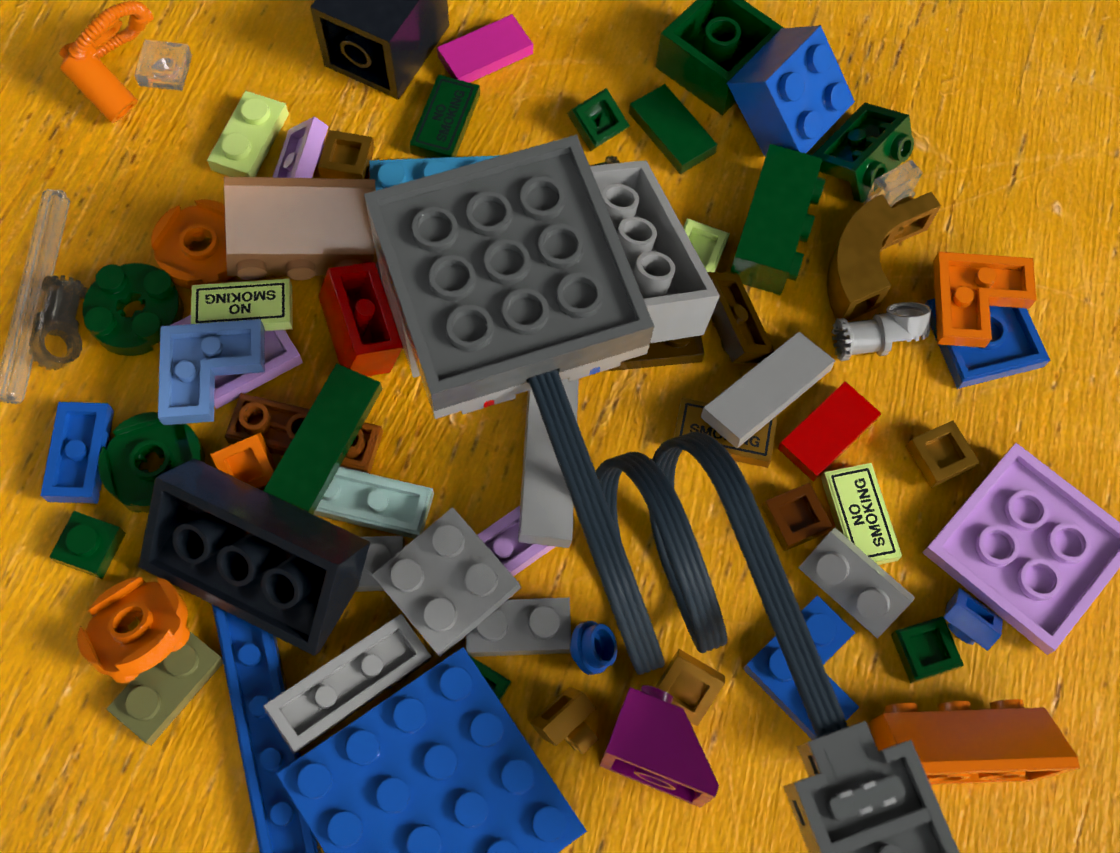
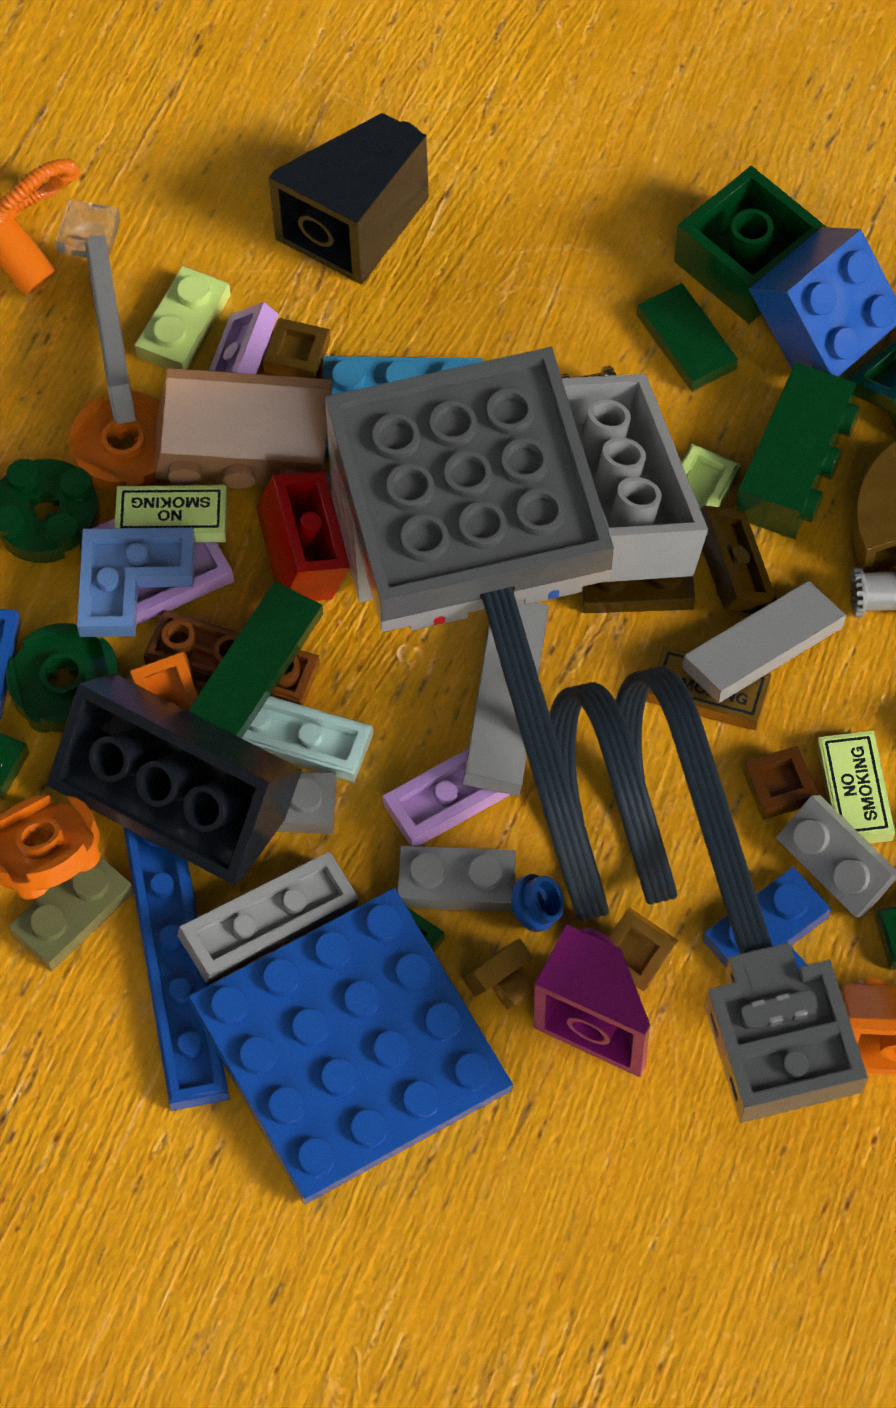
camera: 10 degrees right, 5 degrees down
(182, 148) = (109, 330): none -> light grey tile
(445, 118) = (415, 310): dark green tile -> none
(446, 581) = (381, 820): light grey plate -> none
(485, 50) = (469, 231): dark pink tile -> none
(598, 119) = (597, 321): dark green tile -> none
(829, 431) = (831, 694): red tile -> none

